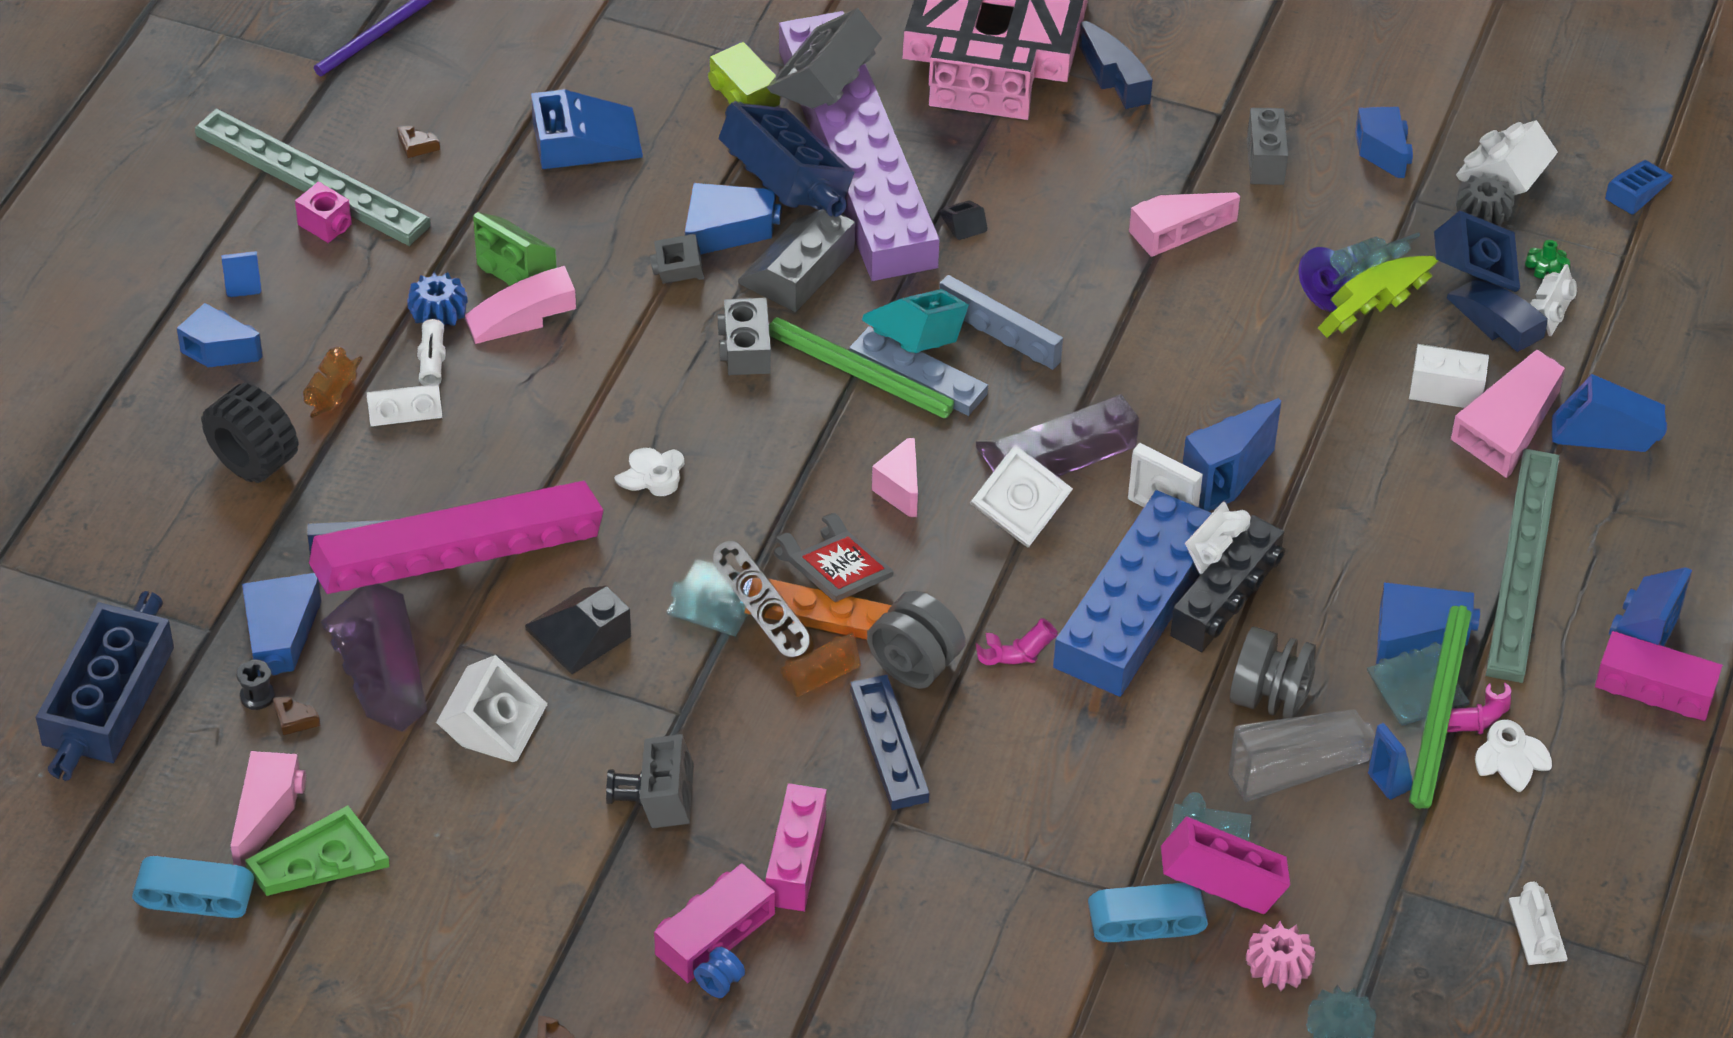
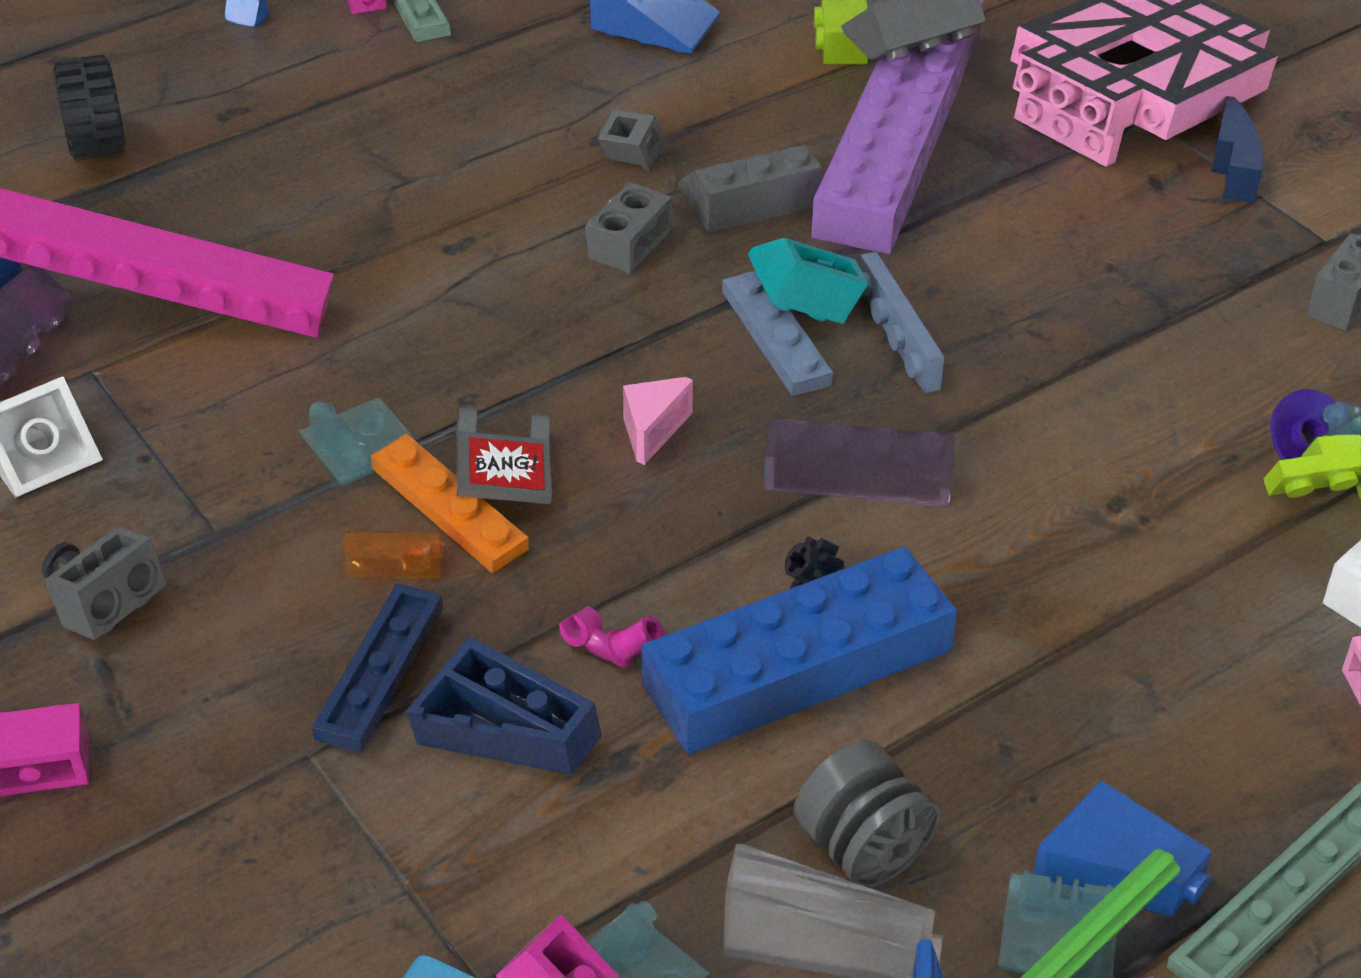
camera: 35 degrees right, 5 degrees down
(218, 339) = (169, 38): blue slope -> none
(326, 392) = (205, 113): clear orange hinge -> none
(404, 405) = (263, 151): white hinge -> none
(431, 338) = (332, 123): white pin -> none
(437, 299) = (381, 84): blue gear -> none
(509, 250) = (482, 71): bright green slope -> none
(522, 306) = (452, 118): bright pink slope -> none
(583, 627) = (205, 408): black slope -> none
(652, 471) = (422, 303): white plate -> none
(731, 216) = (715, 124): slope -> none
(763, 600) = (389, 455): beam -> none
(787, 157) = (807, 90): dark blue brick -> none
(796, 845) = (163, 721): brick -> none
(861, 367) = (721, 306): bright green axle -> none
(916, 639) = (494, 570): dark grey wheel -> none
(965, 219) = (955, 223): black slope -> none
(1005, 726) = (504, 712): none -> dark blue wedge
(1021, 496) = (754, 486): white tile -> none
(1092, 535) = (812, 560): none -> black gear
(1158, 472) = (923, 535): white tile -> none
(1177, 219) = (1190, 309): bright pink slope -> none
(1216, 535) = (923, 623): white hinge -> none
(1227, 584) = (912, 689): black brick -> none
(1232, 452) = (1035, 552): blue slope -> none

